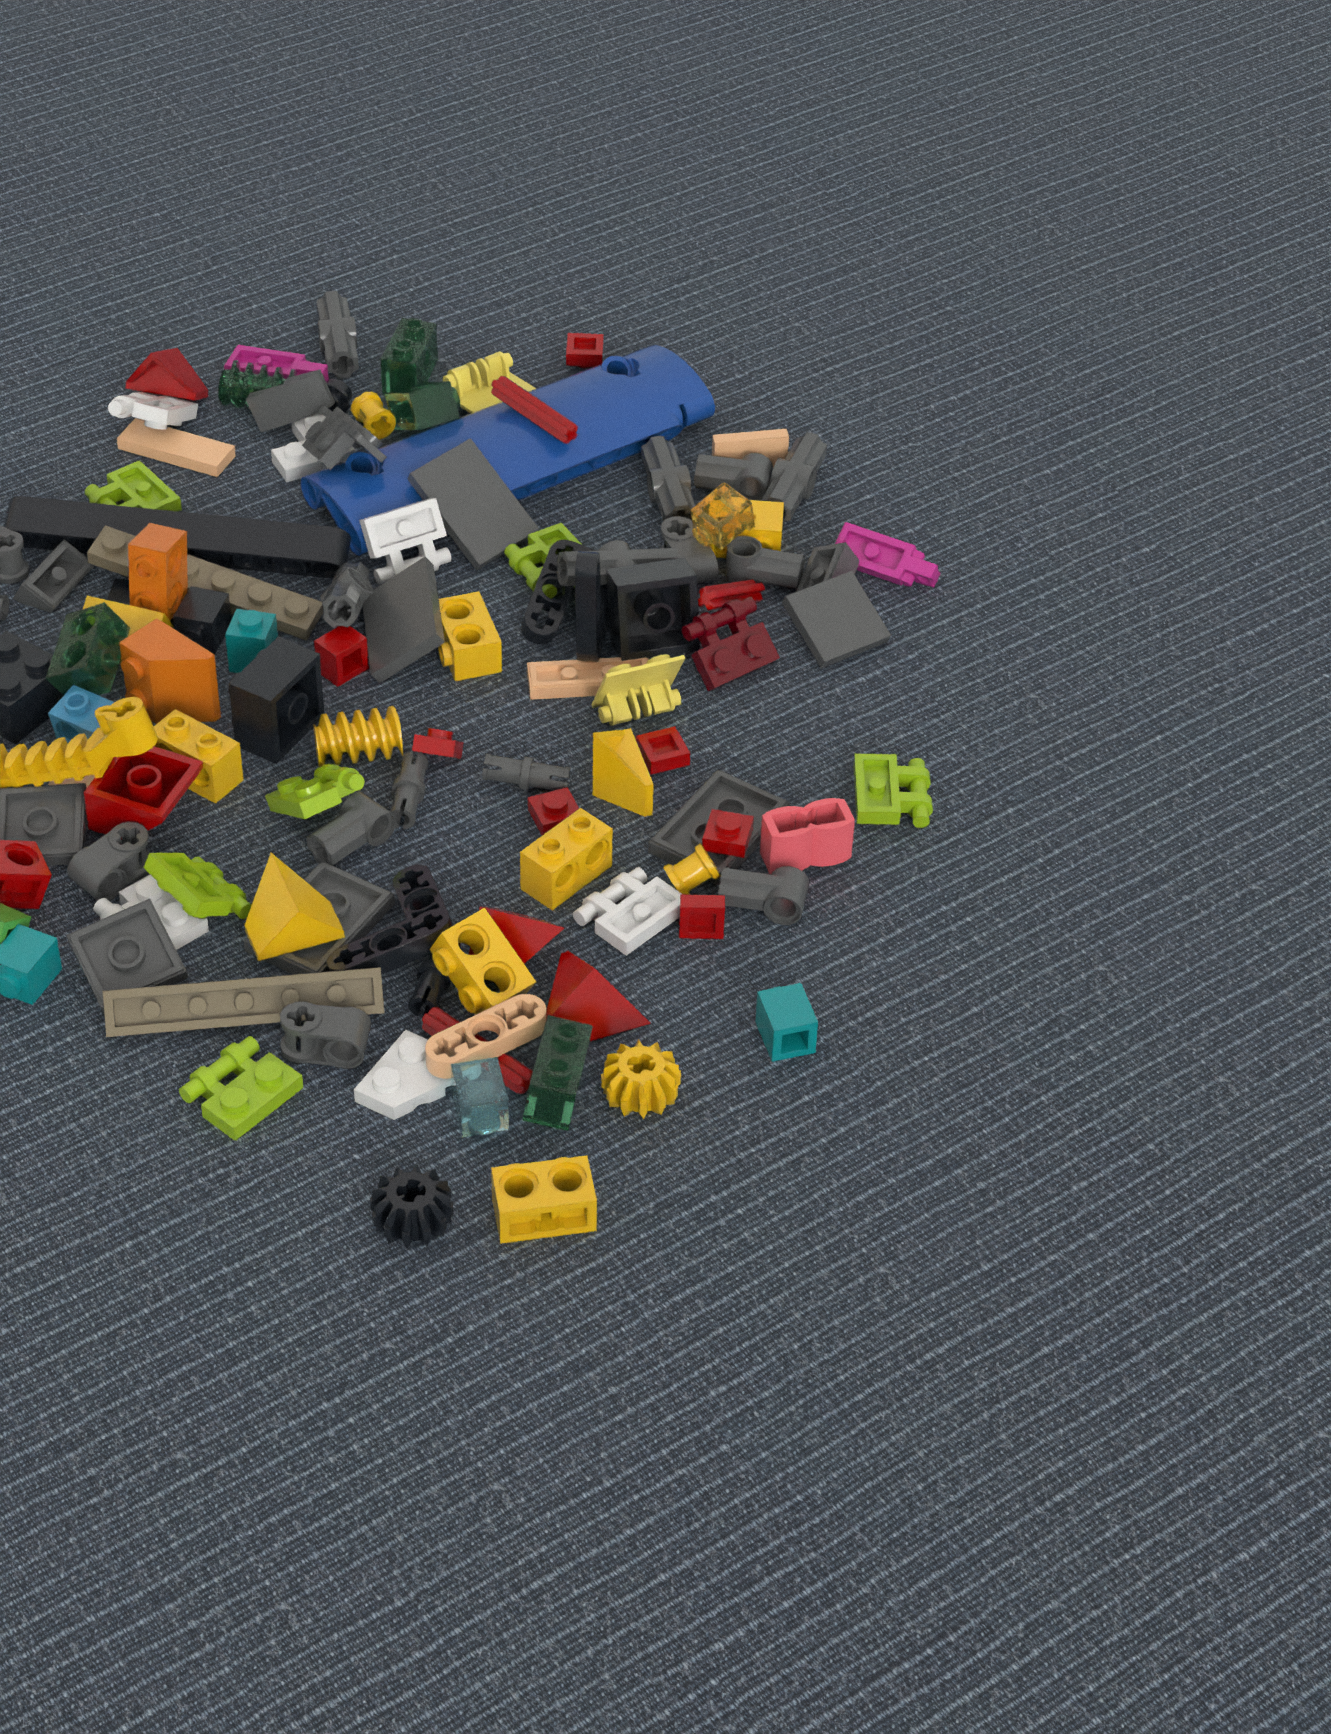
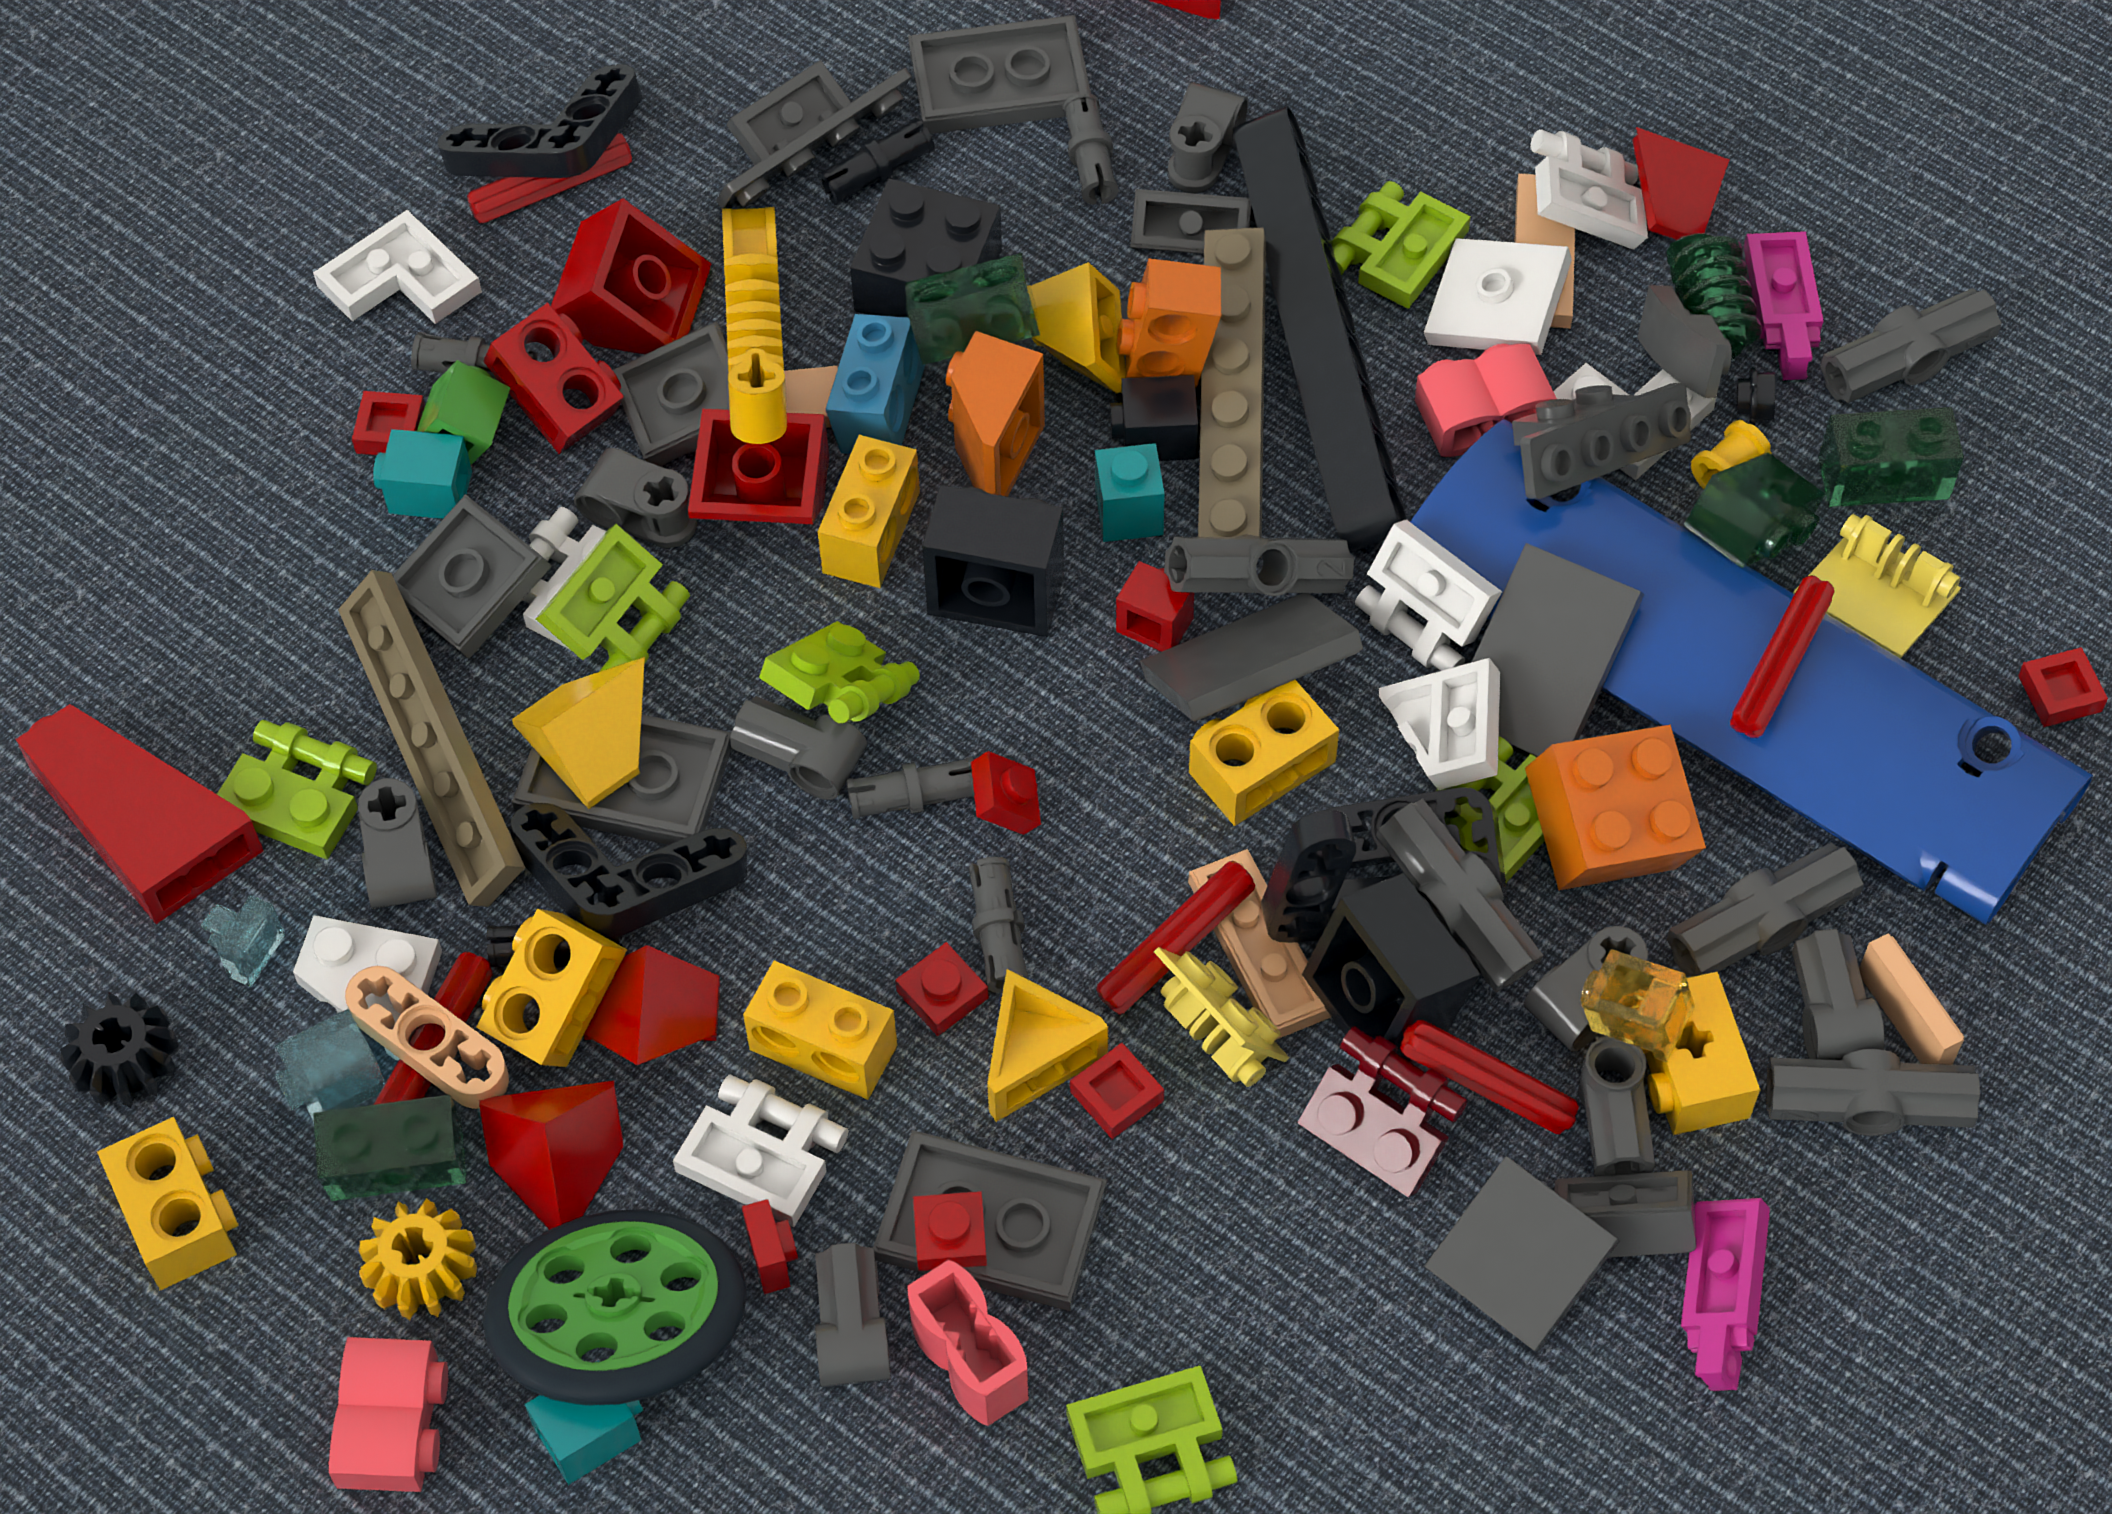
camera: 75 degrees right, 15 degrees up
(204, 465) = (1497, 294): none -> white plate
(216, 1169) = (139, 814): none -> red slope
(272, 489) = (1471, 396): none -> coral brick
(356, 1125) = (244, 939): none -> clear light blue tile
(358, 736) = (978, 685): yellow piece -> none
(494, 554) = (1450, 721): none -> white wing
(572, 696) = (1177, 935): none -> red axle
(586, 503) = (1614, 807): none -> orange brick
(692, 870) = (858, 1212): yellow bush -> none
(720, 982) = (640, 1366): none -> wedge
(743, 1115) = (385, 1415): none -> coral brick

